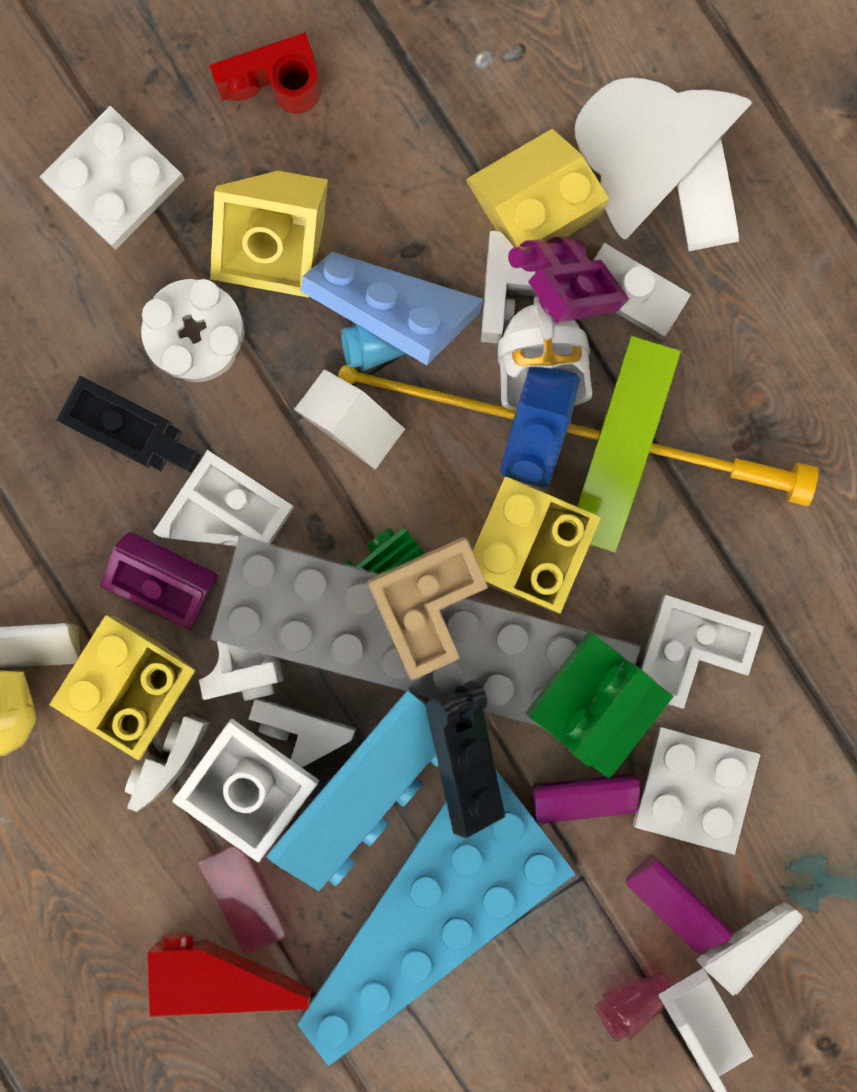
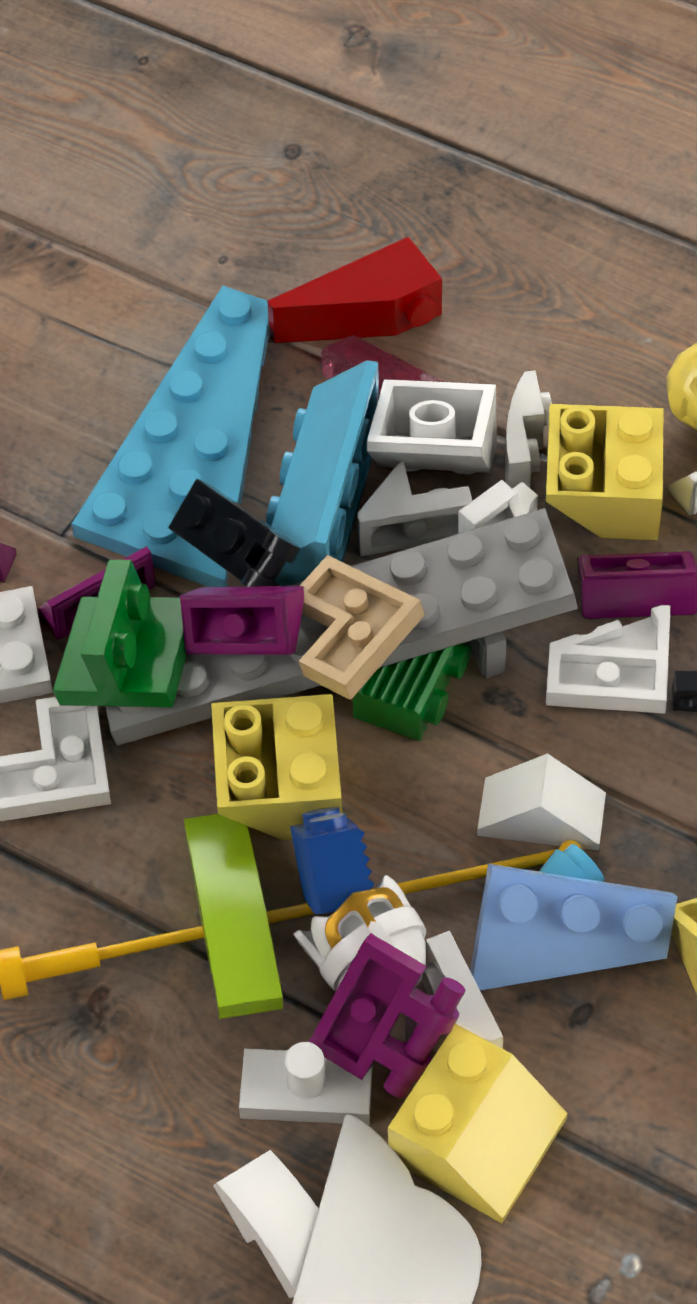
camera: 155 degrees right, 30 degrees down
(503, 665) = (242, 620): none -> magenta slope

